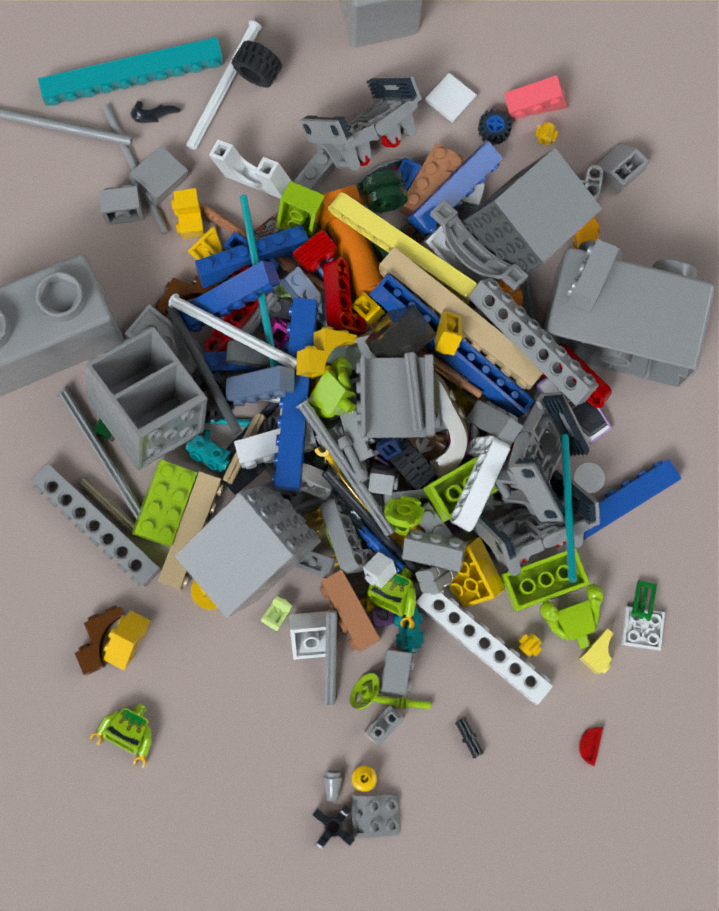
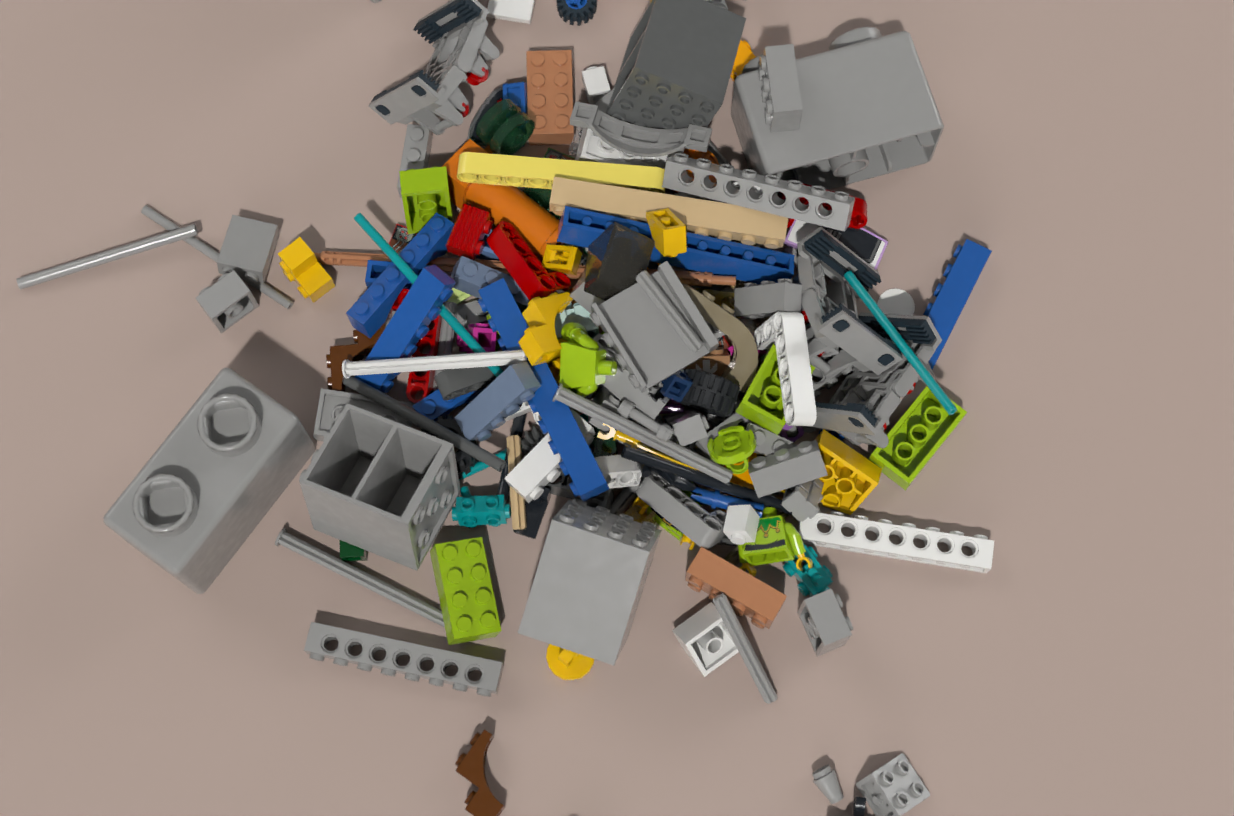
camera: 25 degrees left, 5 degrees down
(107, 504) = (402, 629): dark tan axle -> none
(125, 639) = (511, 761): yellow brick -> none
(130, 71) = (150, 157): teal brick -> none
(150, 116) = (197, 194): black piece -> none
(194, 519) = (511, 603): tan brick -> none
(206, 245) = (344, 294): yellow wing -> none
(220, 91) = (261, 116): white axle -> none
(256, 64) = (285, 73): black tyre -> none
(267, 177) = (373, 184): white arch -> none
(277, 613) = (657, 636): yellowish green bracket -> none
(316, 564) = (669, 559): light grey hinge -> none
(367, 771) = (850, 760): yellow head -> none
(371, 695) = (809, 665): lime dish -> none
(382, 617) = (772, 574): medium lavender slope -> none
(384, 726) = (844, 688): light grey hips -> none
(456, 186) = (577, 83): brick -> none
(469, 737) = (940, 647): black pin -> none
(530, 645) = (943, 513): yellow gear -> none
(576, 620) = (975, 458): lime torso -> none
(589, 745) = (1068, 580): red tile -> none
(597, 654) = (1018, 482): light yellow arch -> none
(641, 614) = (1026, 410): green tile -> none
(643, 633) = (1047, 428): white tile -> none

